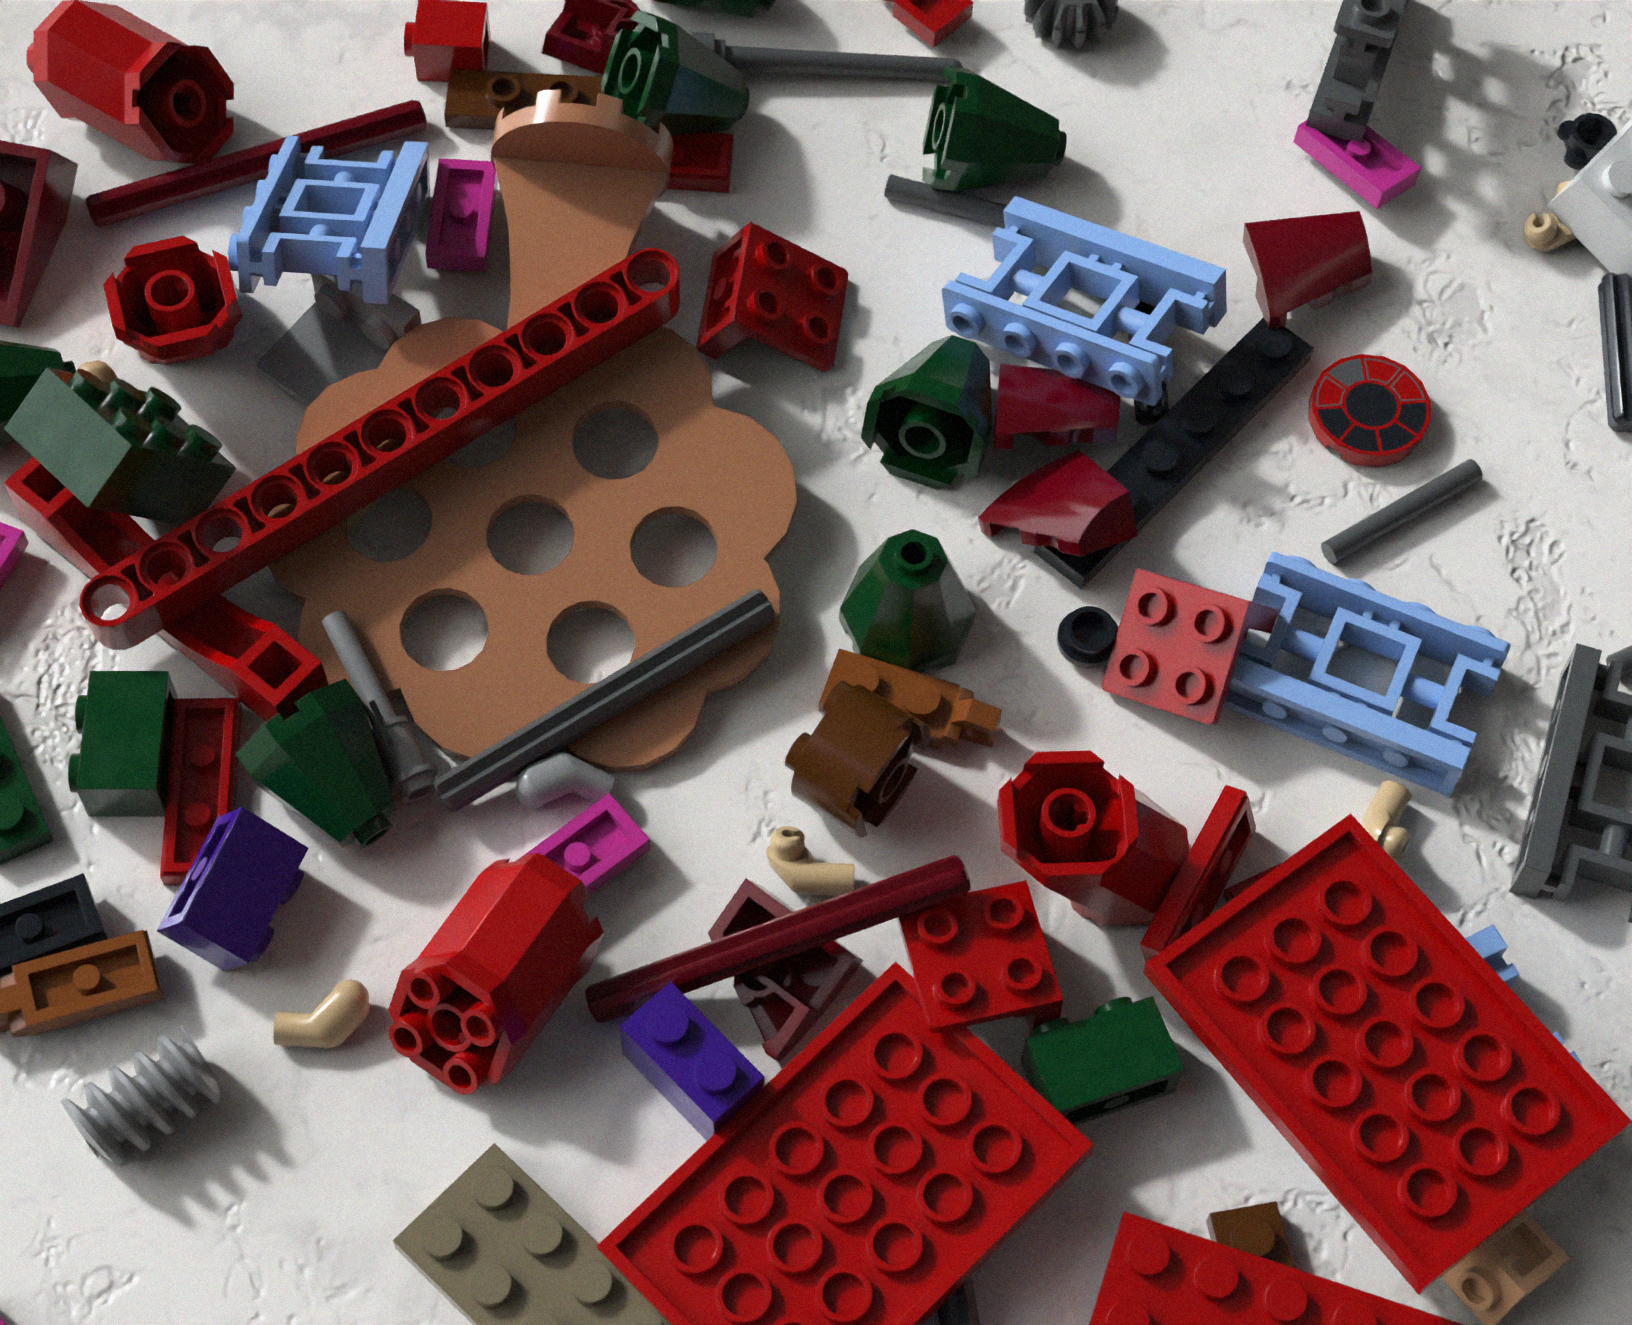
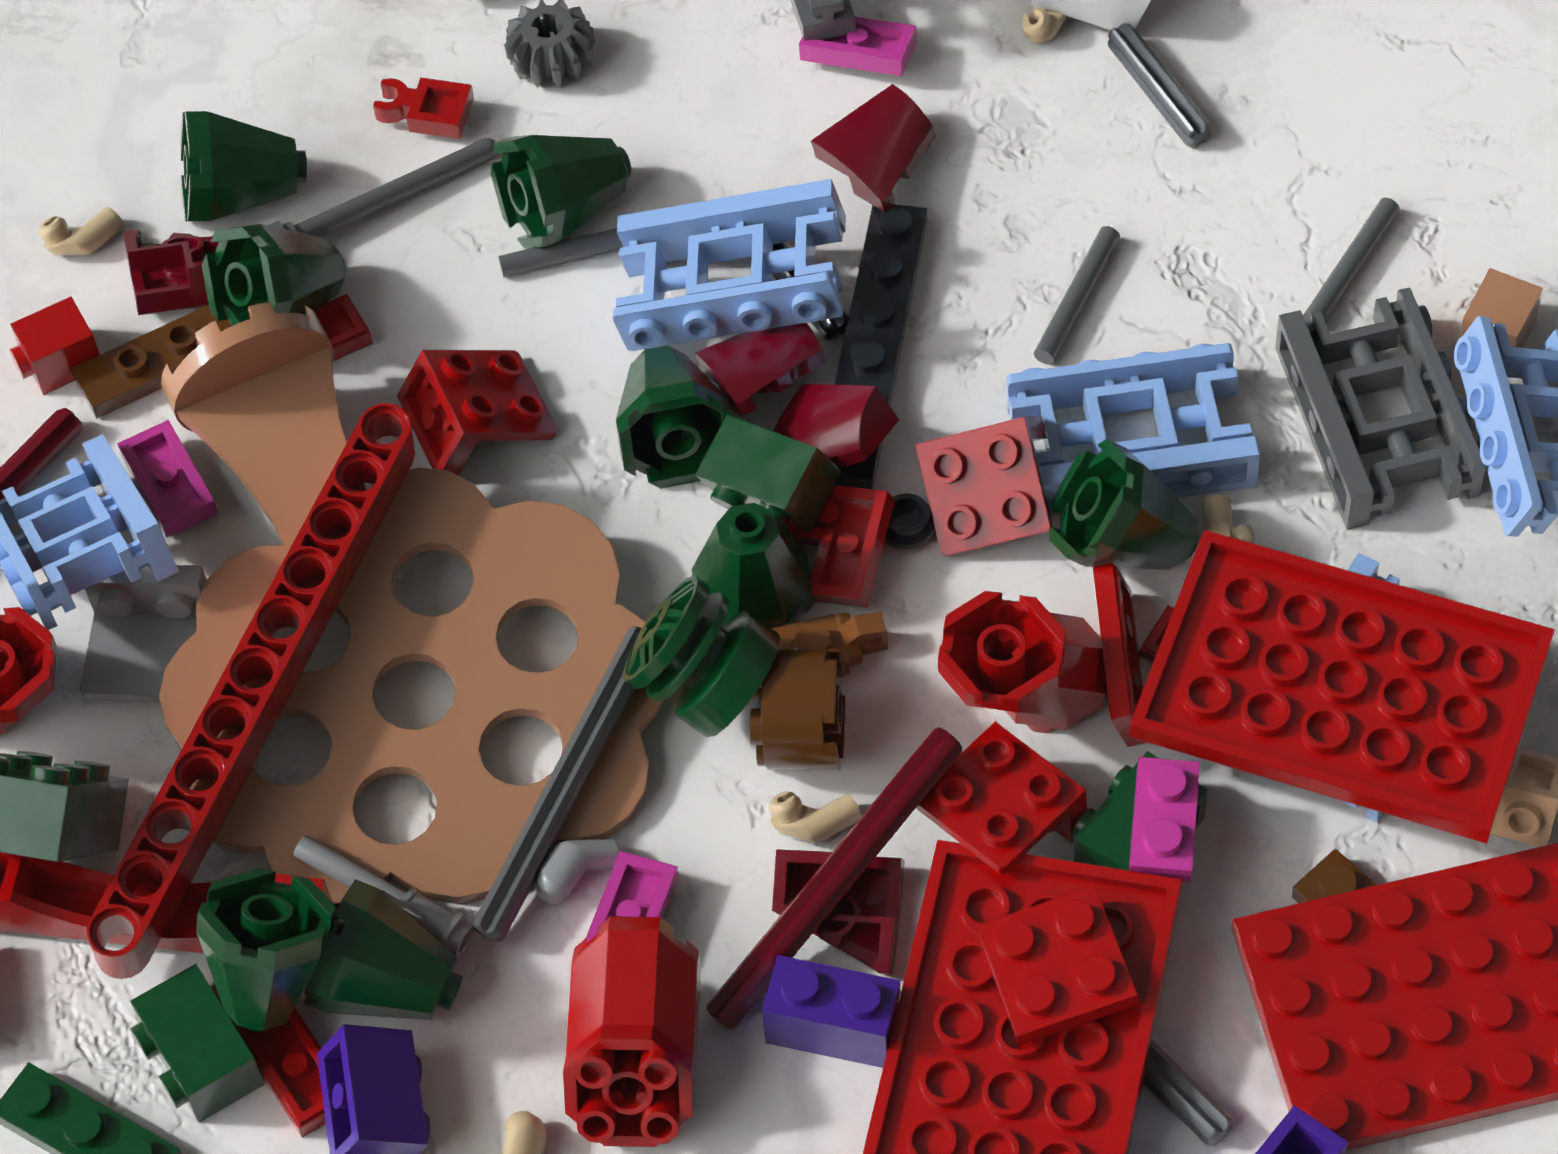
camera: 25 degrees left, 5 degrees down
(218, 687) = (263, 943): none -> dark green cone
(795, 661) = (709, 661): none -> dark green wheel
(918, 1154) = (1057, 965): none -> red plate
(982, 517) = (770, 470): none -> dark green brick
(1023, 616) = (850, 544): none -> red plate
(1120, 1074) = (1164, 817): none -> dark pink plate
(1286, 750) = (1120, 514): none -> dark green cone
(1369, 410) = (1000, 232): tile -> none

